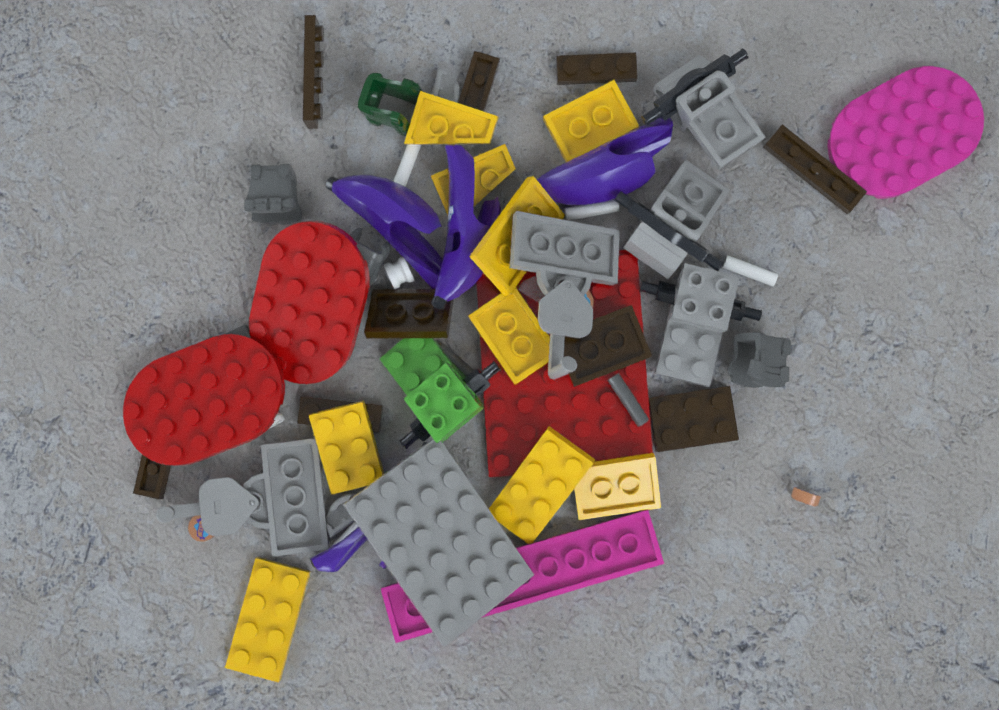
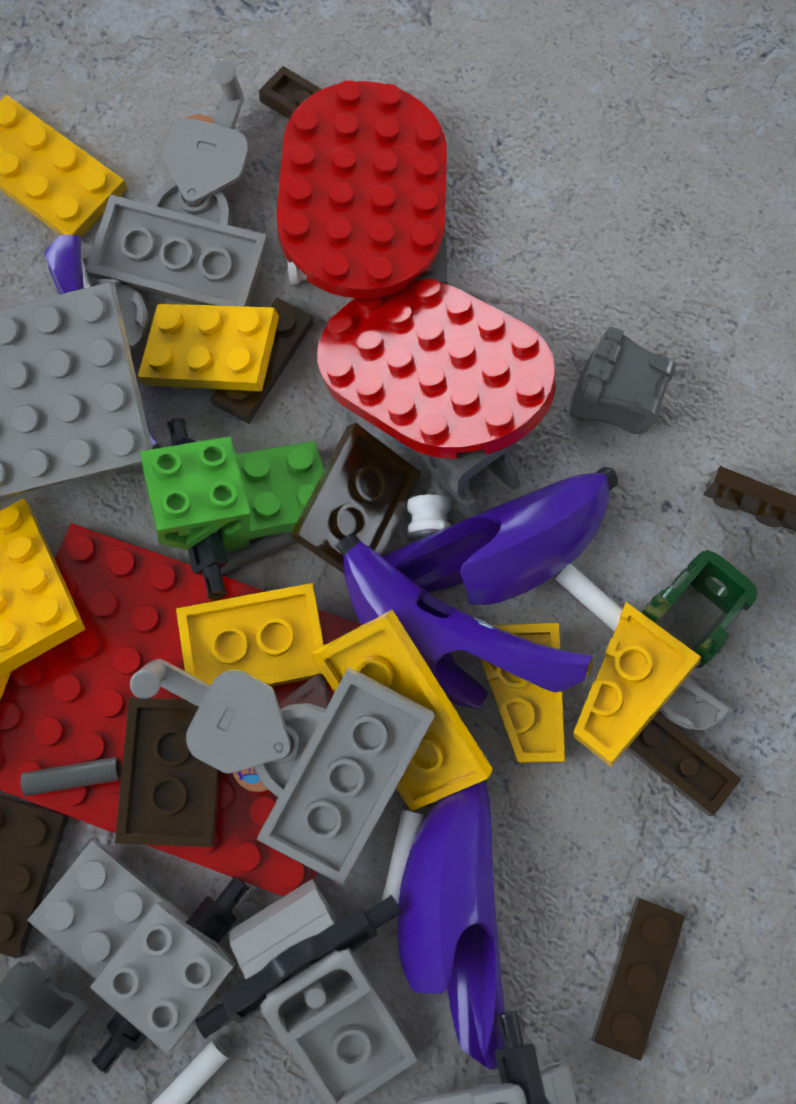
camera: 115 degrees right, 10 degrees down
(590, 121) = (547, 925): yellow plate -> none

